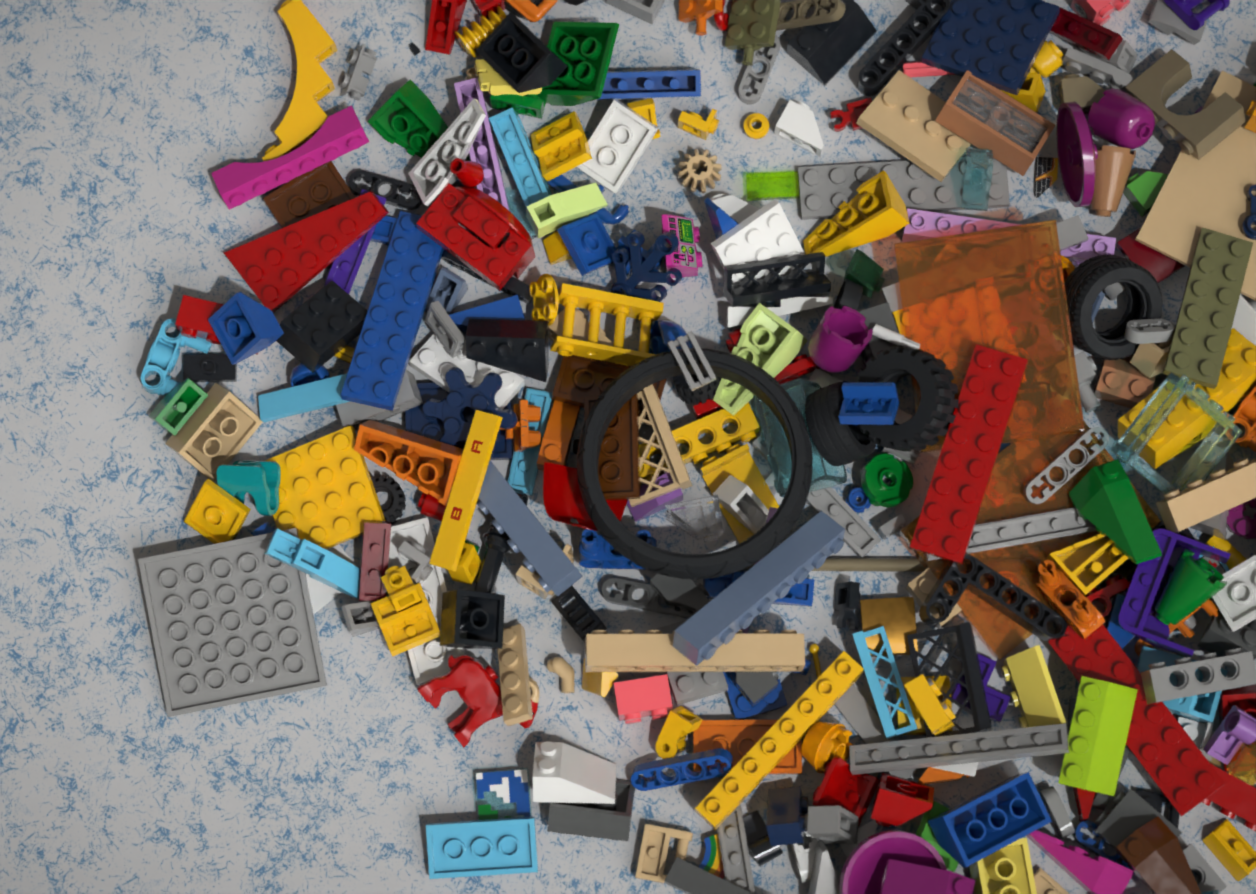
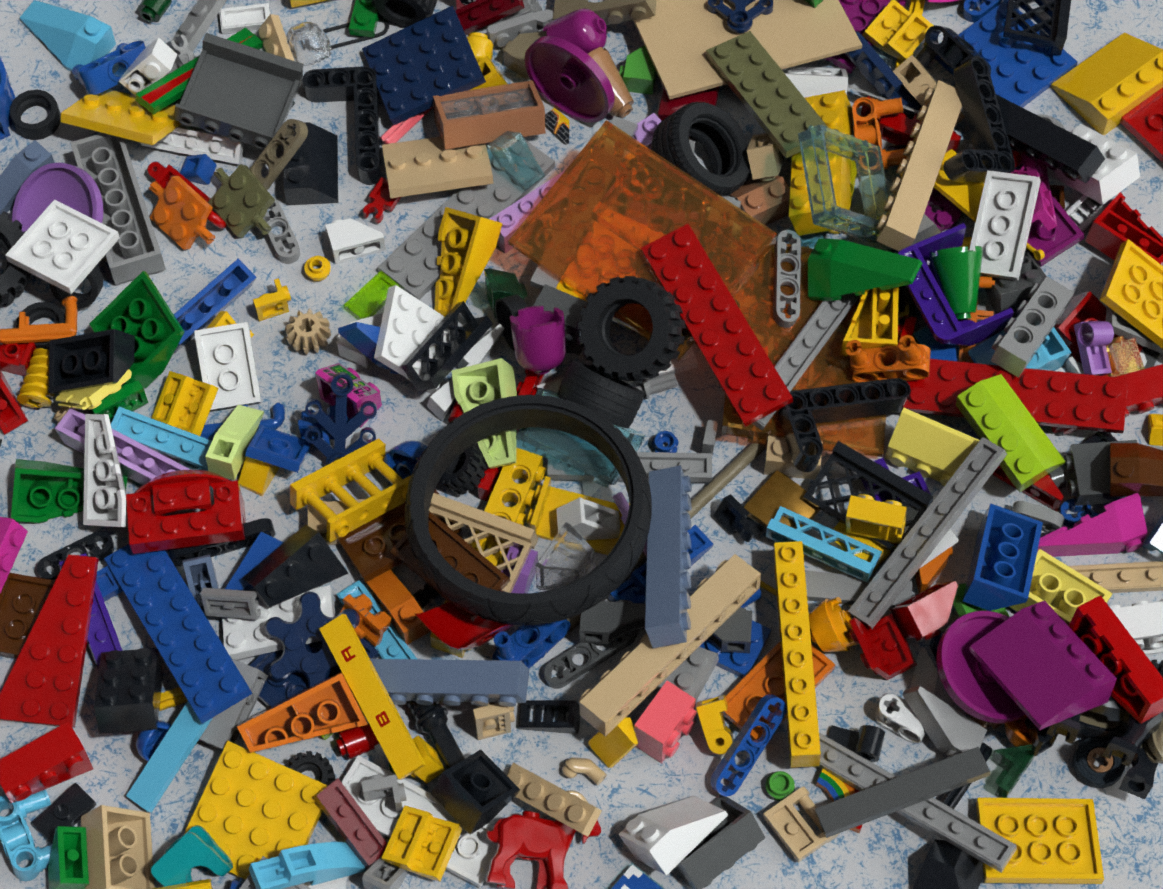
camera: 50 degrees left, 15 degrees down
(244, 327) = (67, 738): blue slope -> none
(400, 587) = (394, 820): yellow brick -> none
(467, 172) = (134, 471): red cone -> none
(544, 299) = (286, 511): yellow dish -> none
(678, 815) = (779, 785): none -> bright green plate
(681, 341) = (433, 419): light grey tile -> none
(786, 816) = (860, 700): dark blue brick -> none
(832, 824) = (899, 670): light grey brick -> none
(869, 403) = (611, 346): blue bracket -> none
(874, 487) = (659, 413): green plate -> none
(894, 337) = (573, 301): white pin -> none
(1149, 331) = (746, 141): light grey beam -> none

